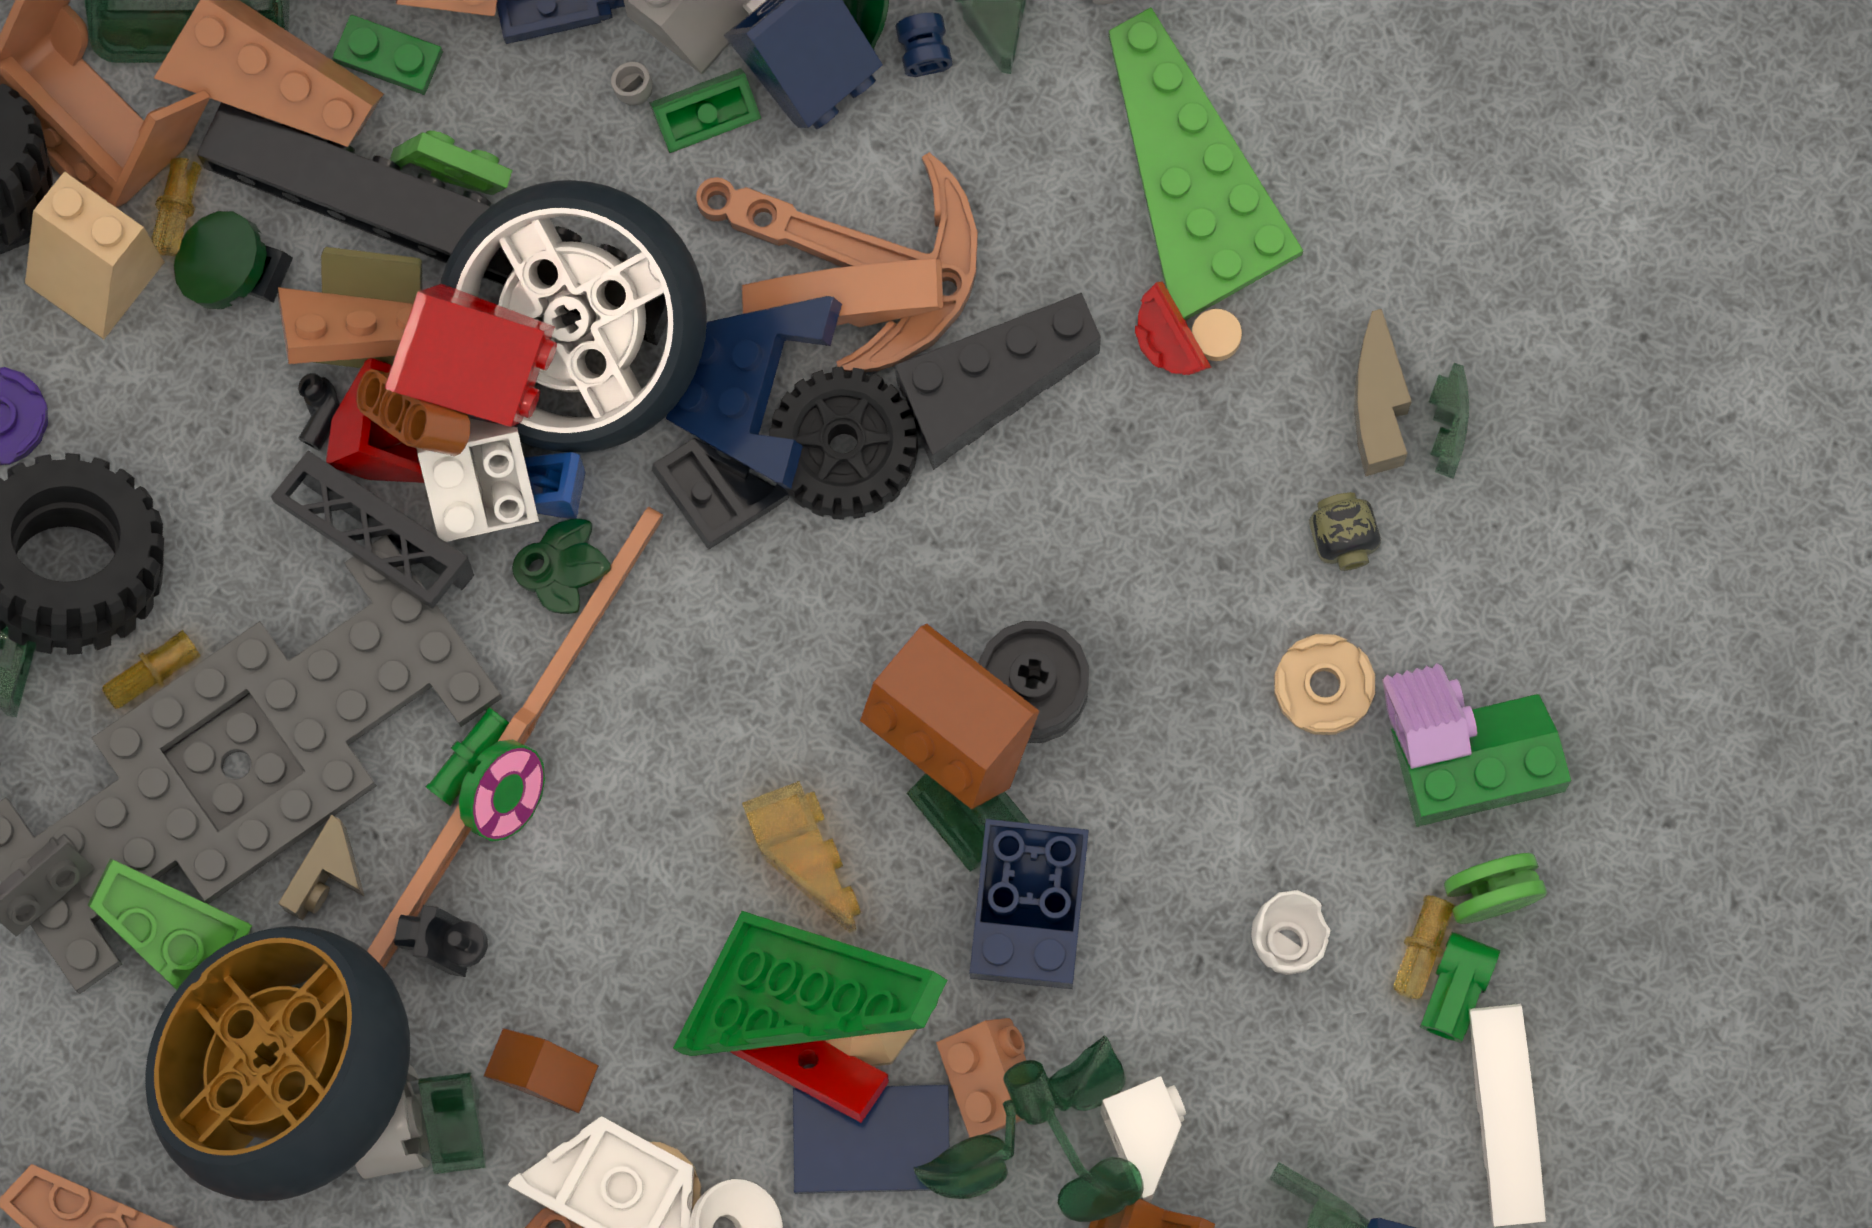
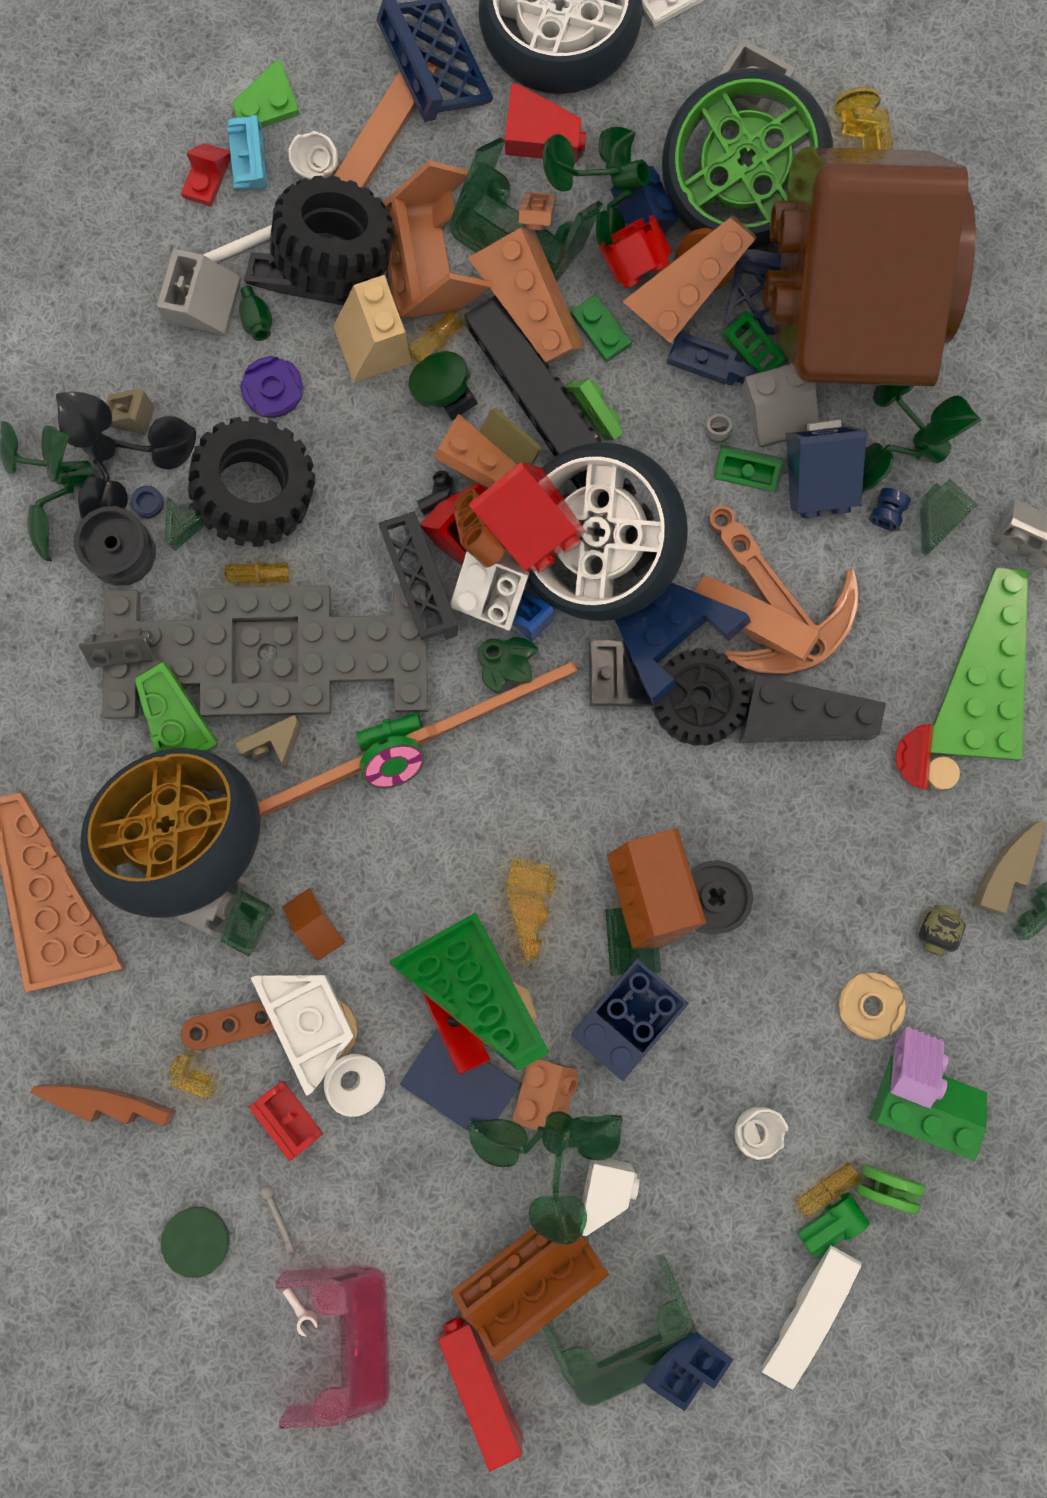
camera: 35 degrees right, 5 degrees up
(442, 940) = (305, 821): black hips -> none

